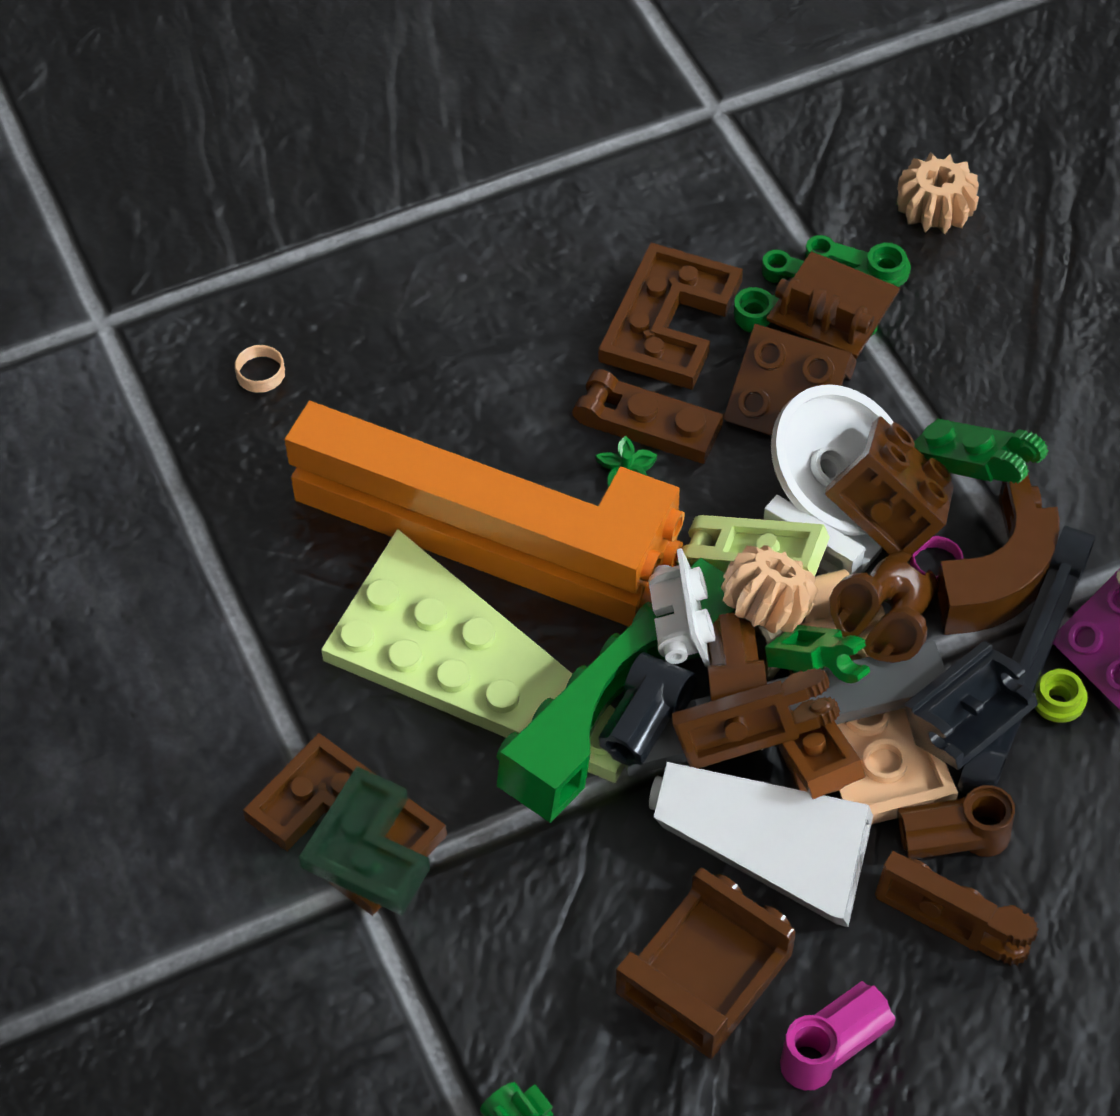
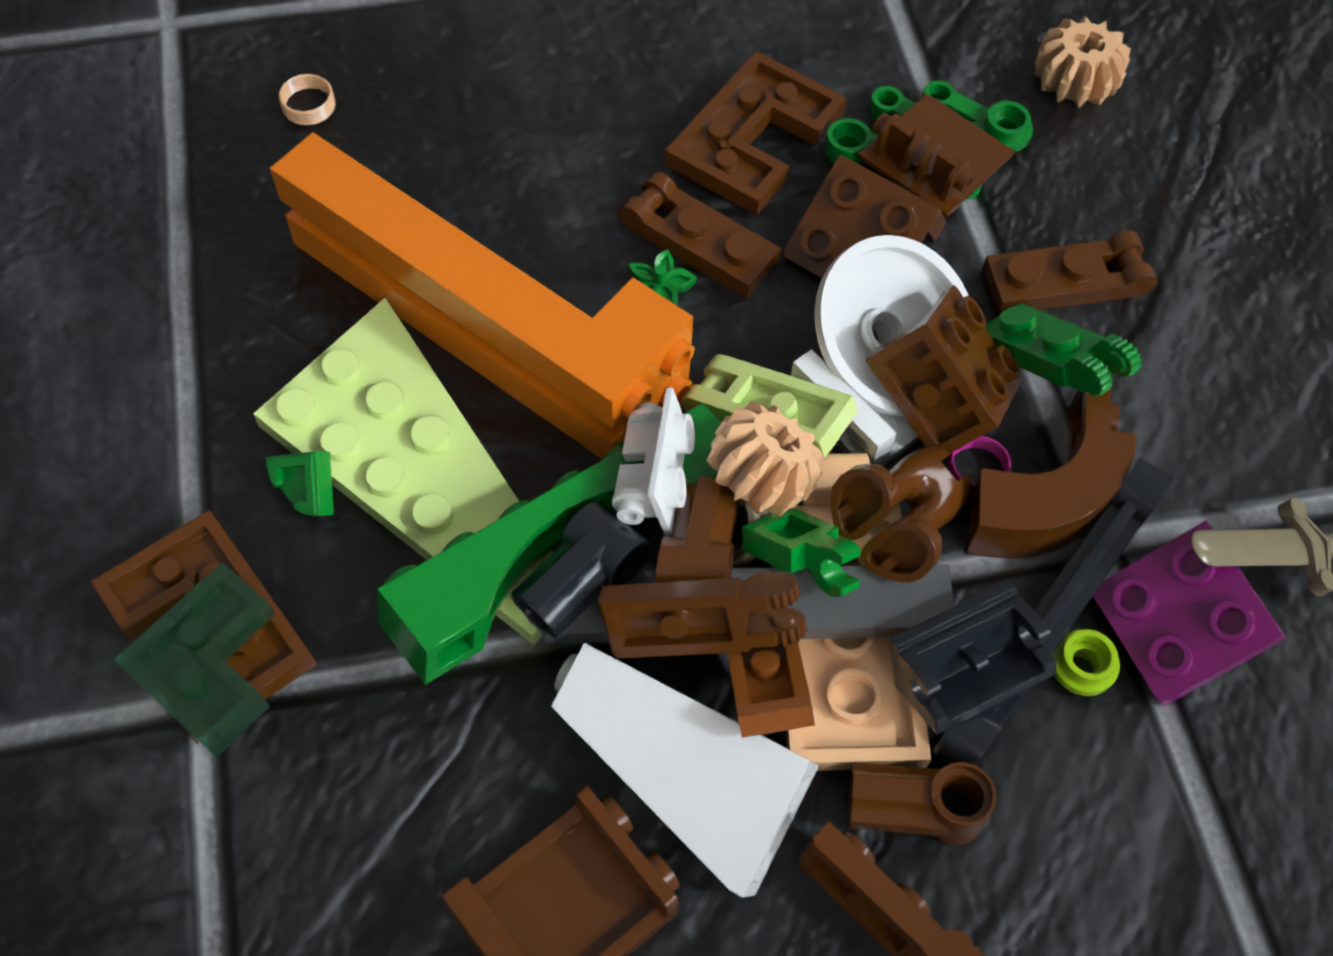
camera: 10 degrees right, 5 degrees up
(384, 694) = (304, 480): none -> green tile
(971, 385) = (1069, 274): none -> reddish brown plate

